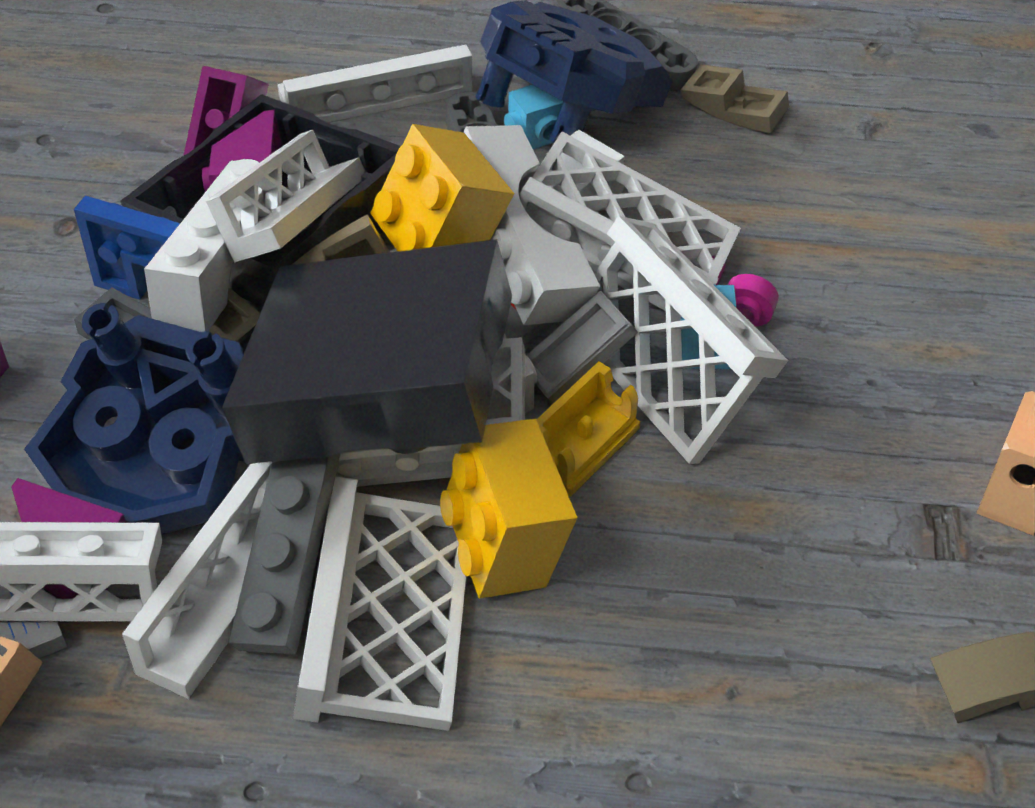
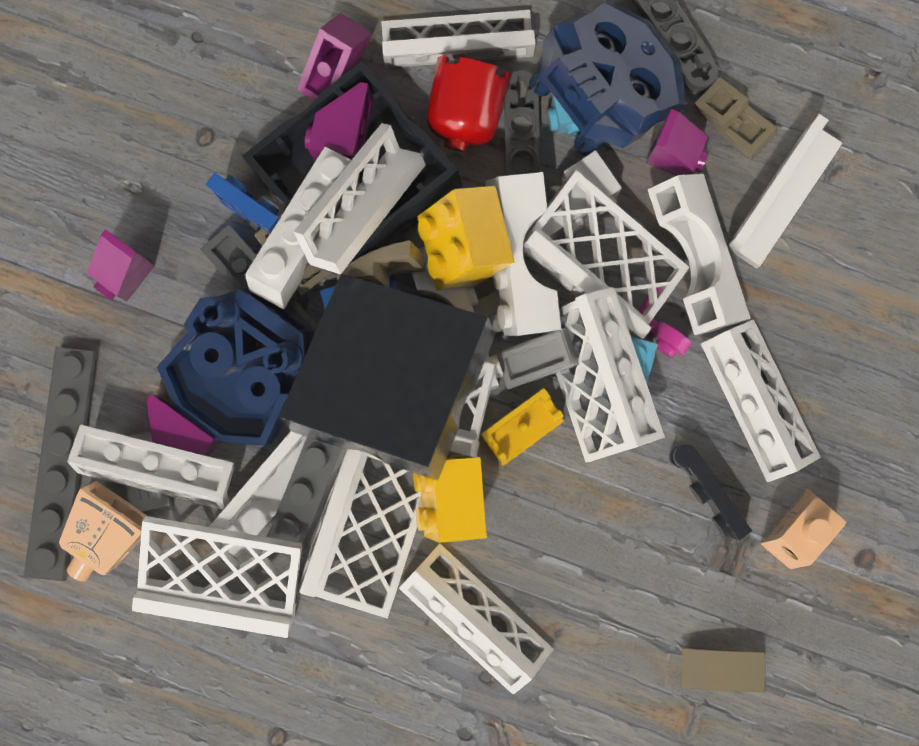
camera: 15 degrees right, 35 degrees up
(152, 751) = (215, 602): none -> white fence
(401, 93) = (466, 102): none -> red cylinder
(595, 693) = (472, 624): none -> white fence
(678, 116) = (679, 146): none -> magenta slope
(771, 226) = (689, 214): none -> white arch
(822, 149) = (784, 193): none -> white fence
(878, 449) = (708, 489): none -> black plate
(895, 347) = (757, 403): none -> white fence

